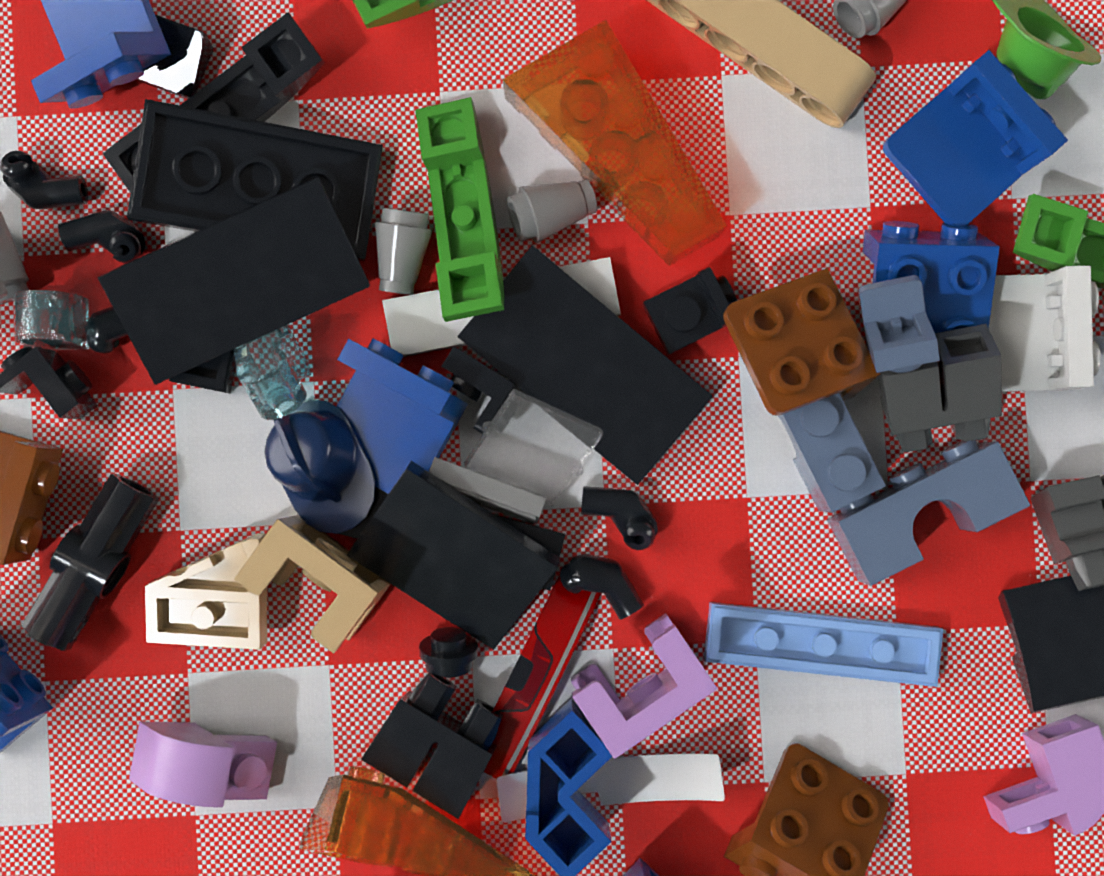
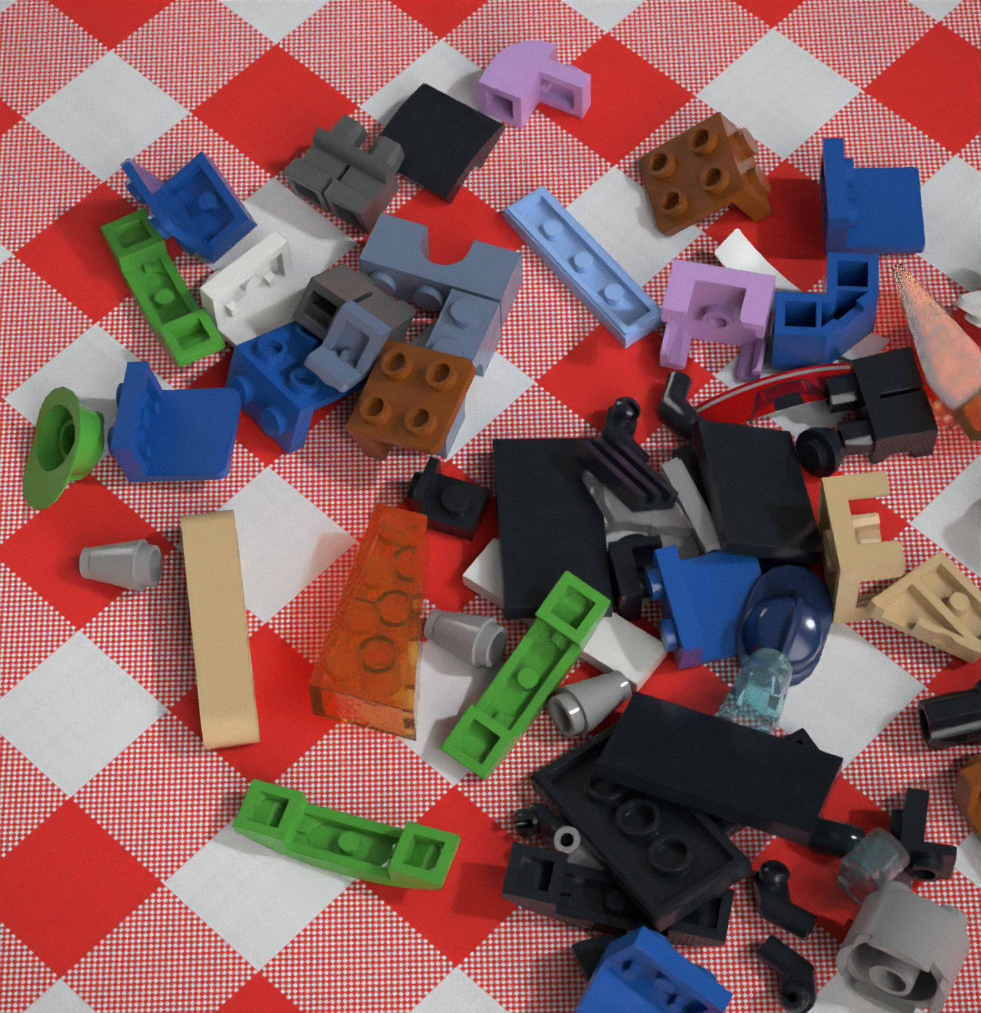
camera: 135 degrees left, 30 degrees down
(309, 116) = (548, 827): none -> black arm
(563, 469) = (625, 474): none -> black tile

